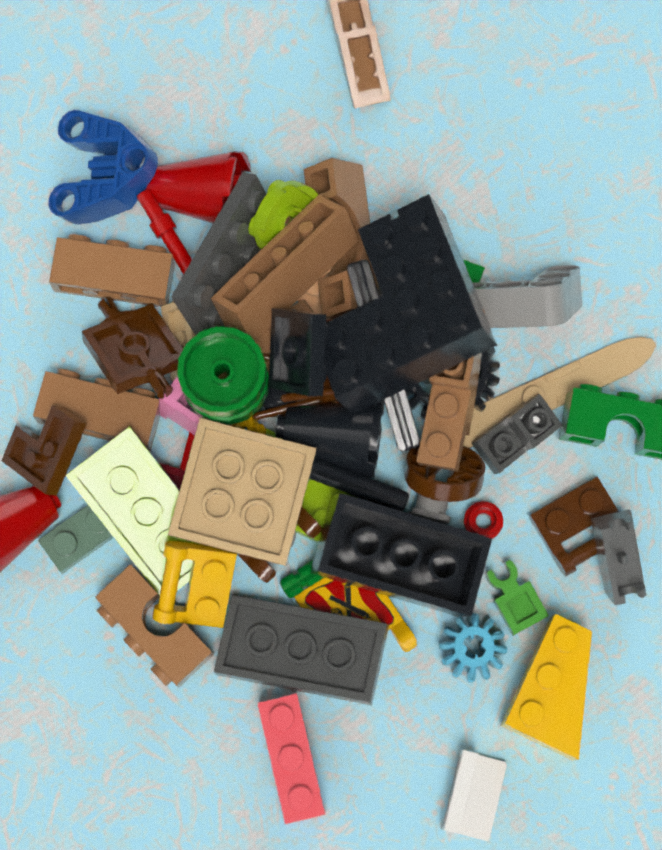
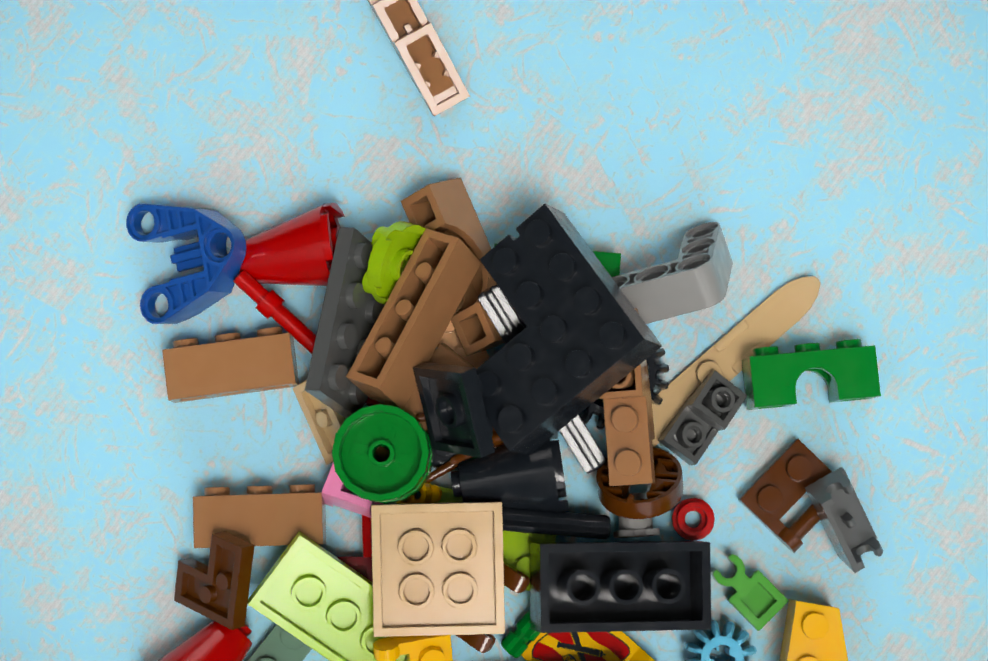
camera: 15 degrees left, 5 degrees up
(133, 348) = (278, 444): reddish brown plate -> none

